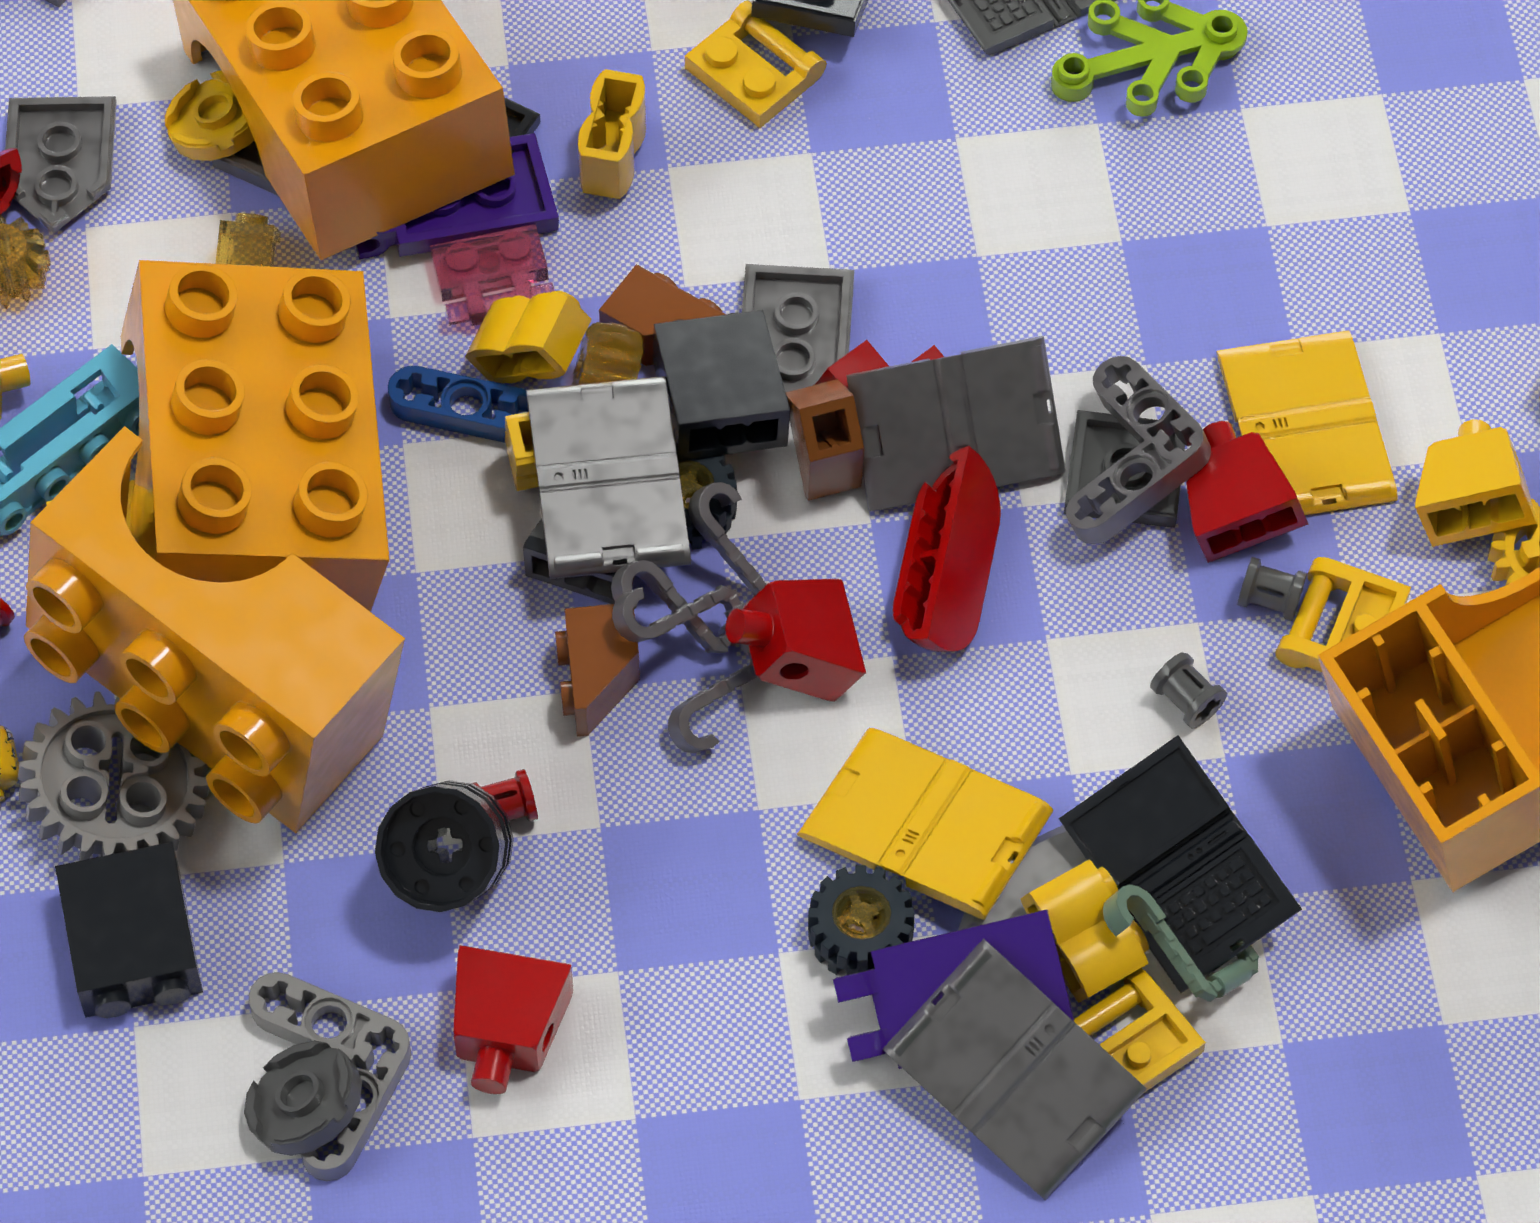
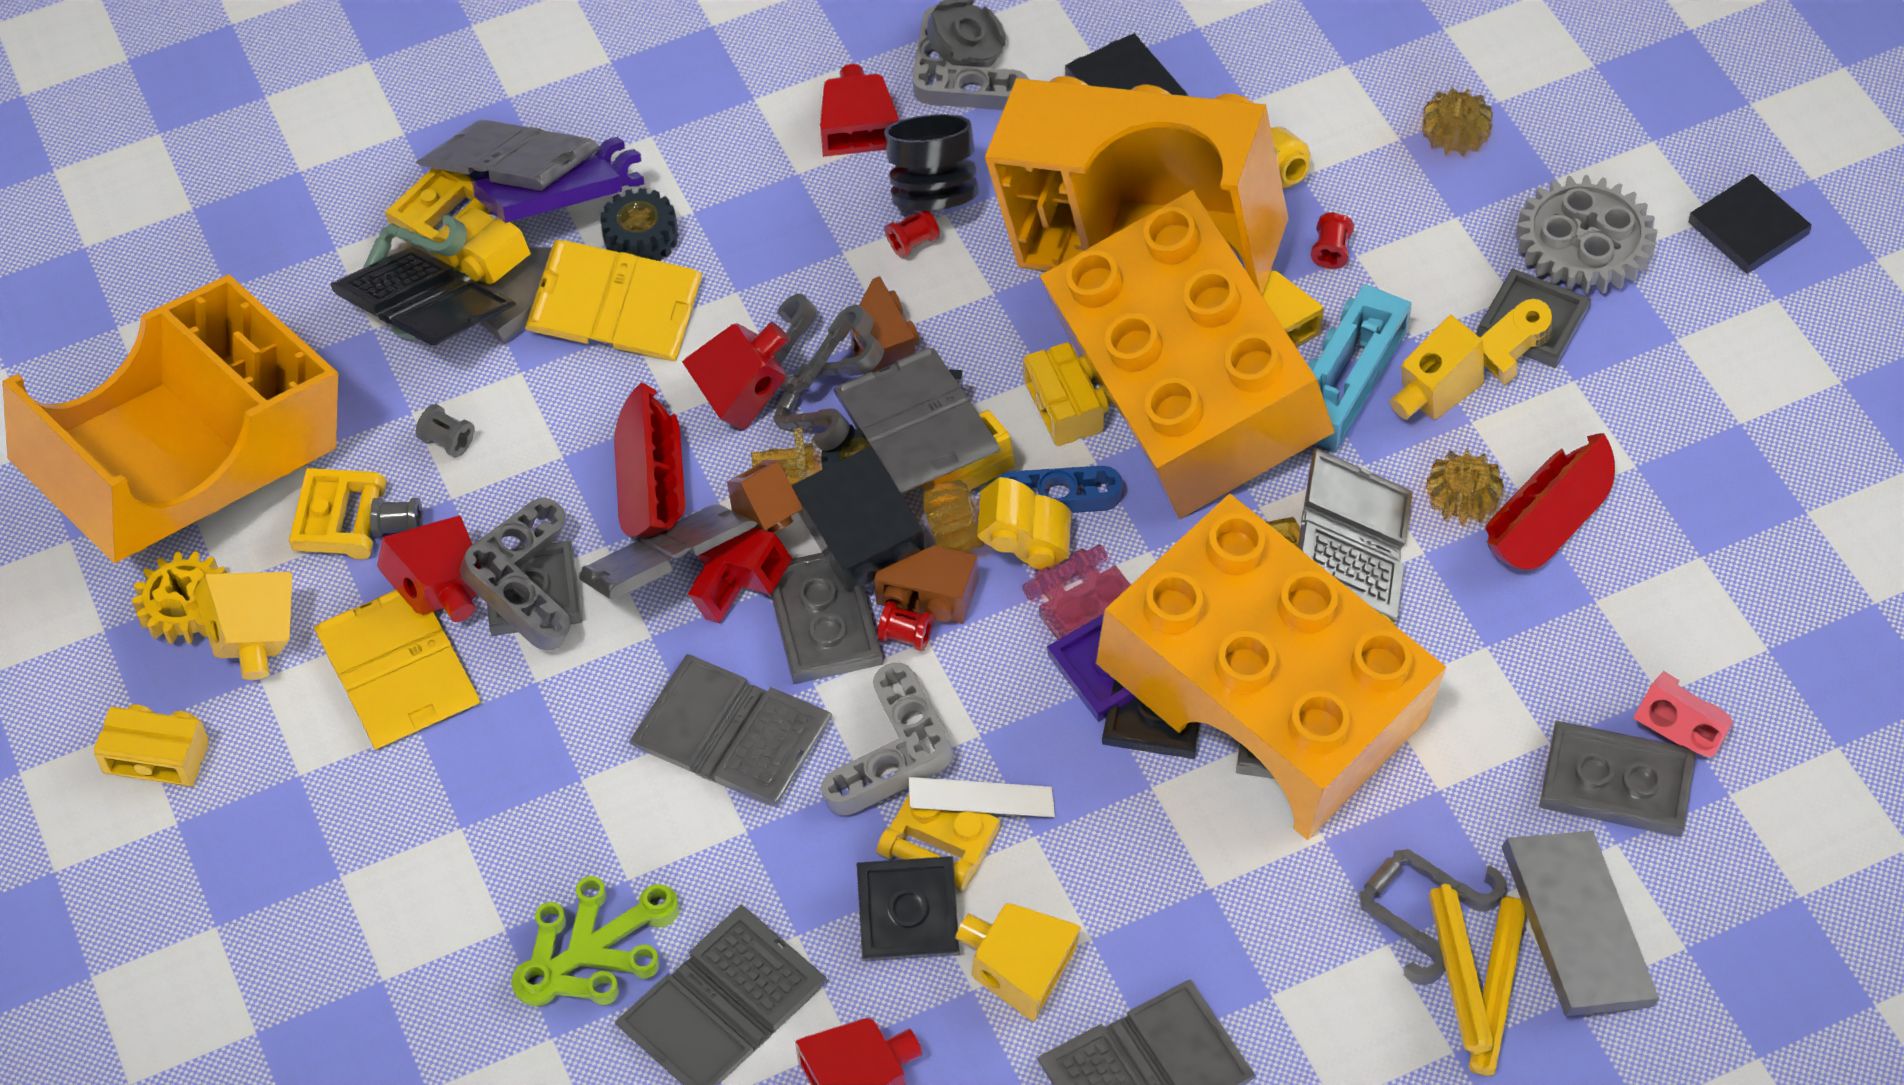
camera: 165 degrees right, 5 degrees down
(63, 153) = (1476, 595): flat silver tile -> none
(169, 216) = (1356, 529): none -> piece
(414, 509) = (1064, 393): none -> yellow brick
(612, 134) = (1027, 710): yellow brick -> none
(703, 80) = (981, 797): none -> white sticker
(707, 281) = (905, 626): none -> red bush
(760, 142) = (905, 751): none -> light grey beam
(782, 511) = (793, 460): none -> clear yellow bracket
(939, 240) = (730, 730): none -> flat silver piece

